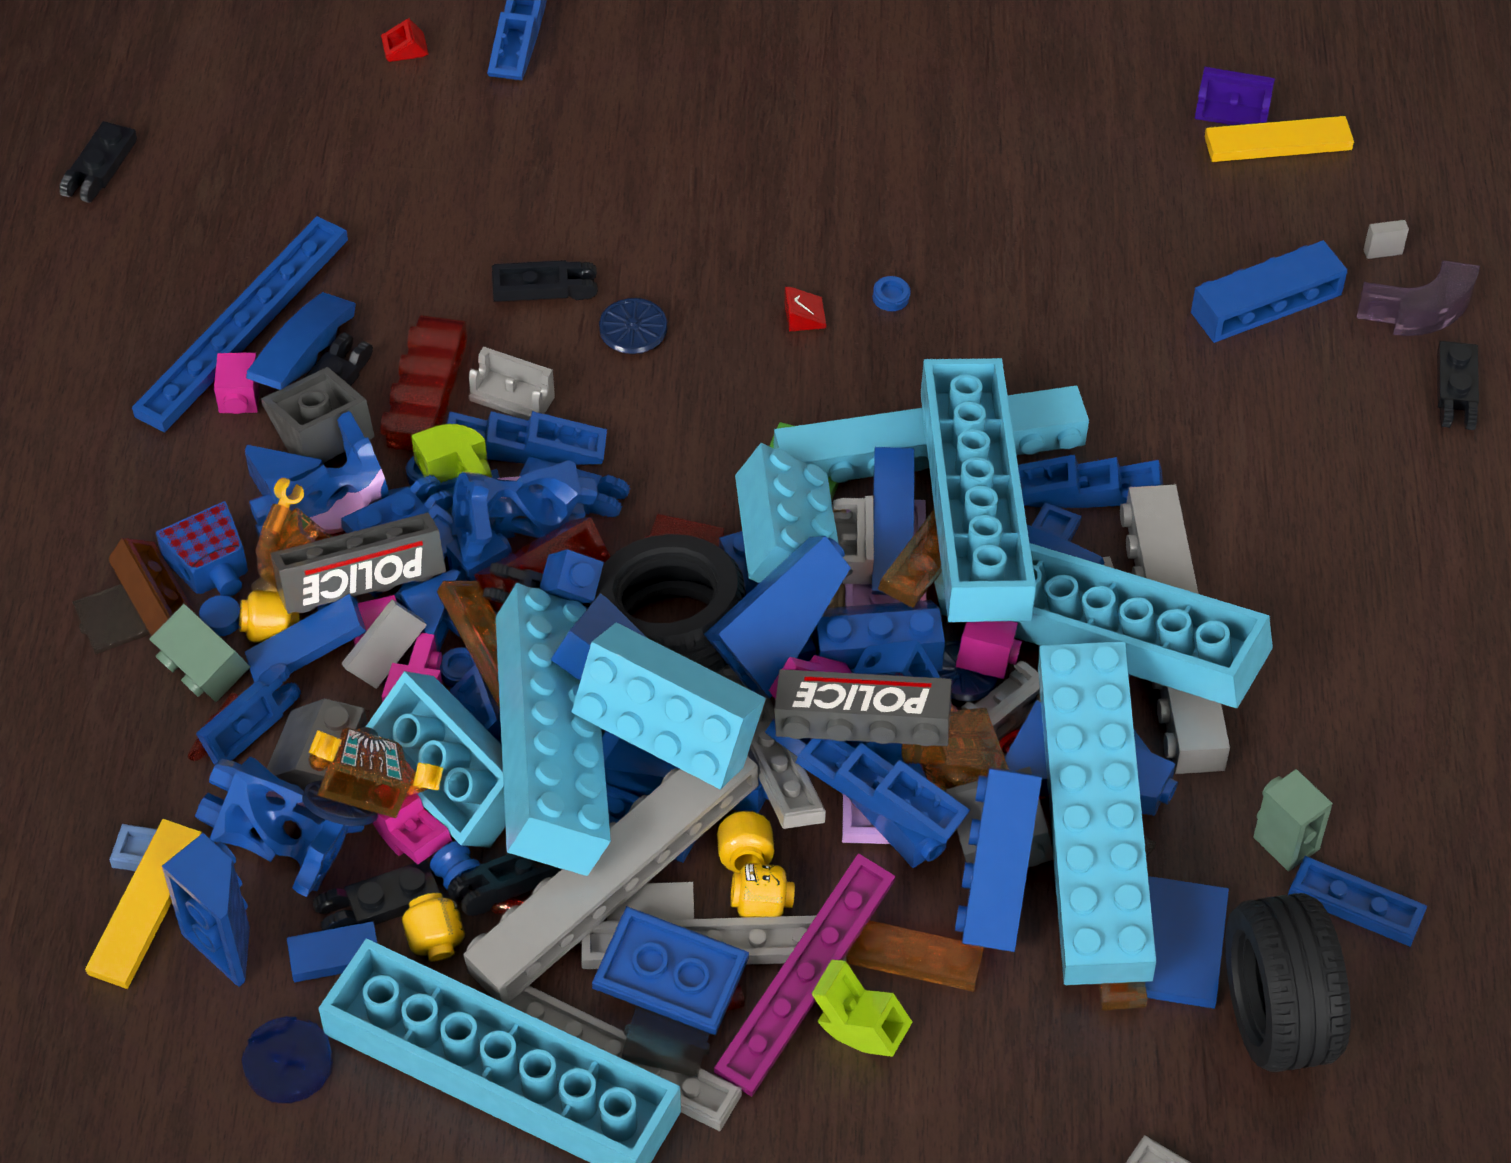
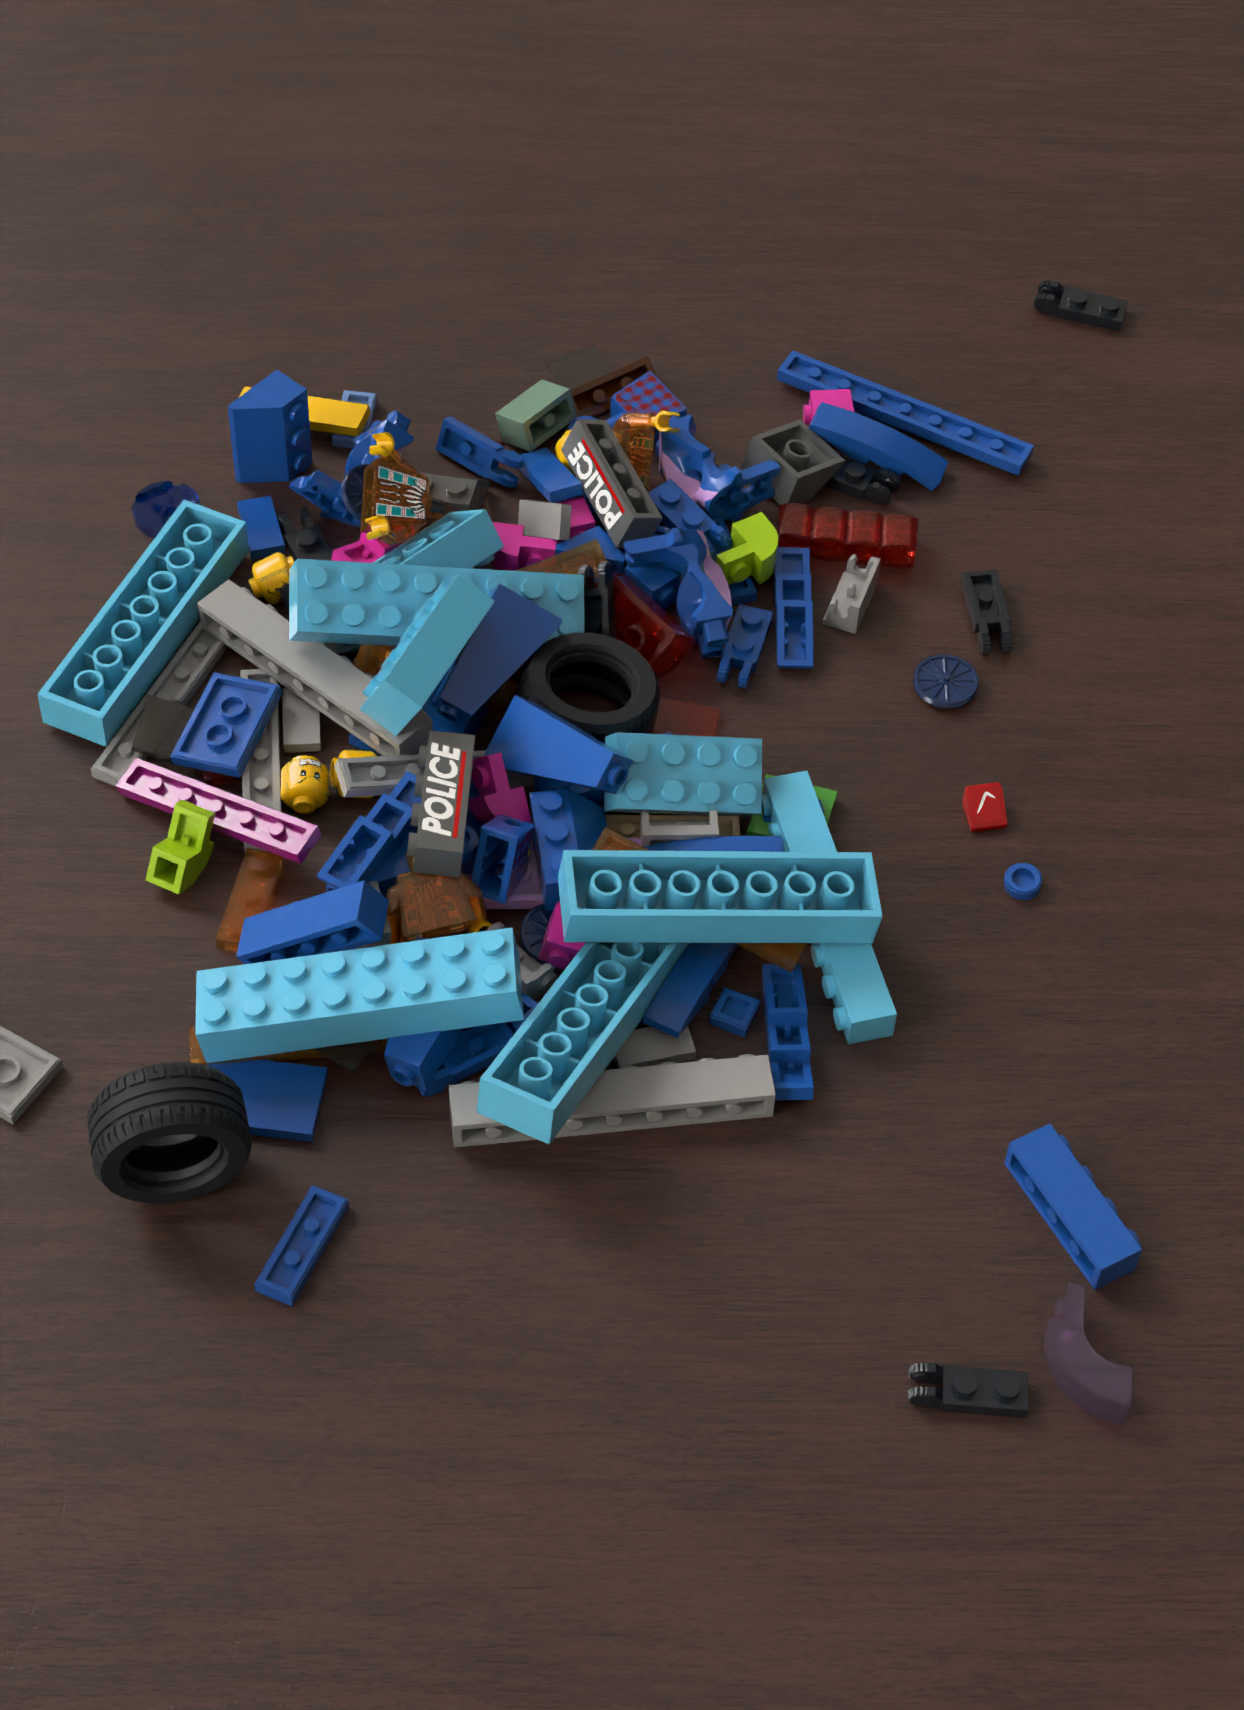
camera: 85 degrees right, 0 degrees up
(274, 464) = (729, 442): blue slope -> none
(571, 576) = (599, 614): blue brick -> none
(1292, 819) = (371, 1172): sand green brick -> none
(1386, 239) = (1172, 1326): light grey tile -> none

